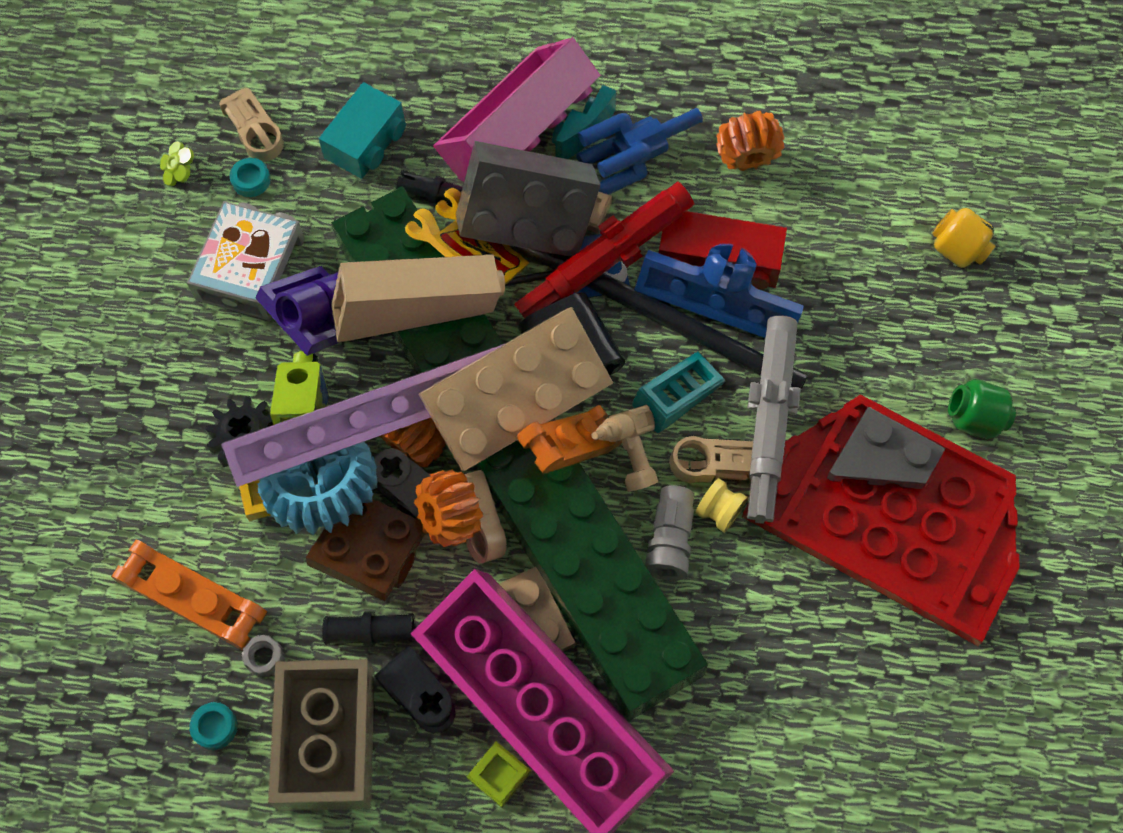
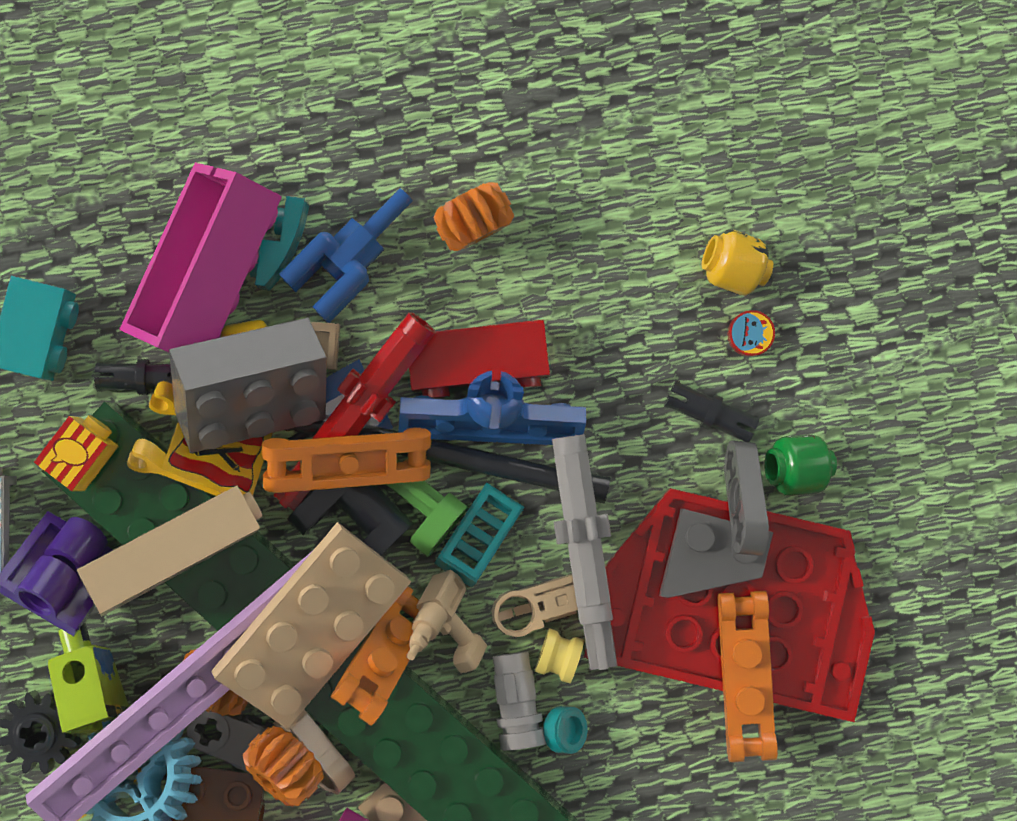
camera: 20 degrees left, 20 degrees up
(369, 204) = (77, 452): none -> yellow brick
(588, 280) = (346, 461): none -> orange plate
(649, 358) = (440, 513): none -> bright green piece
(708, 570) = (565, 729): none -> teal tile
(890, 567) = (747, 676): none -> orange plate
(911, 349) = (711, 412): none -> black pin
(928, 411) = (746, 498): none -> dark grey beam
(961, 299) = (751, 333): none -> tile

